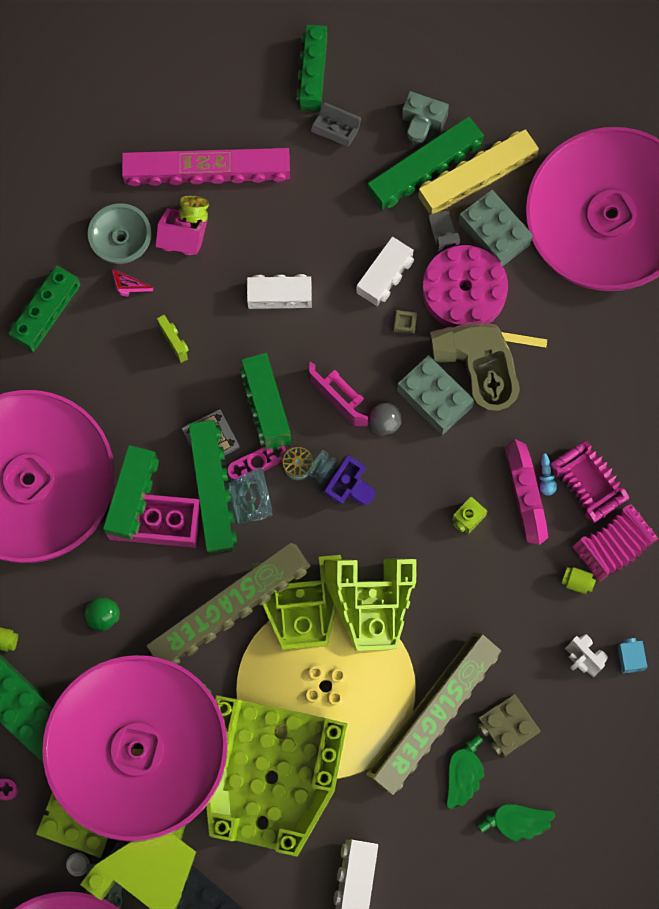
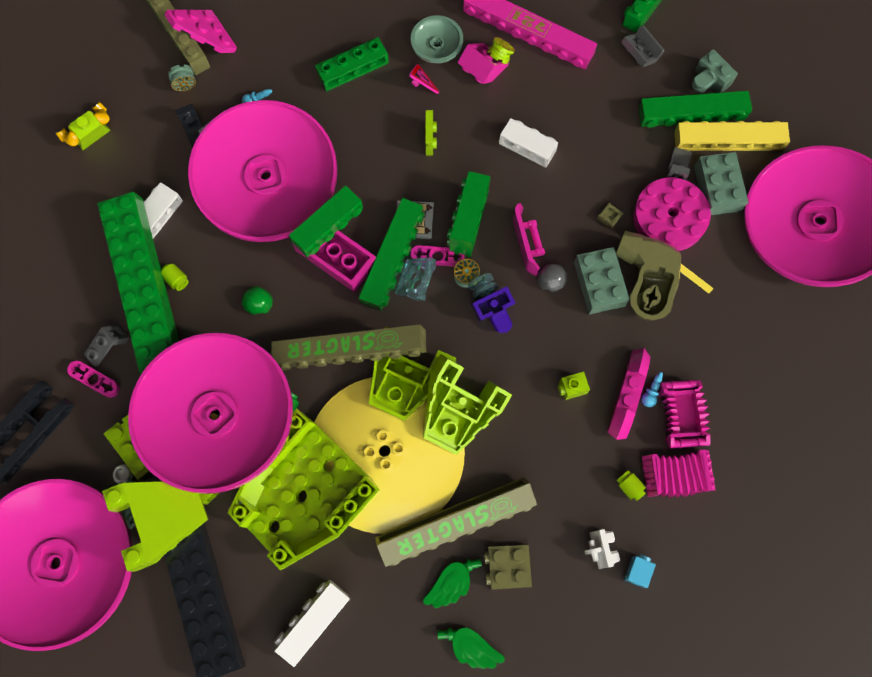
camera: 30 degrees right, 0 degrees up
(385, 272) = (617, 170): white brick -> none

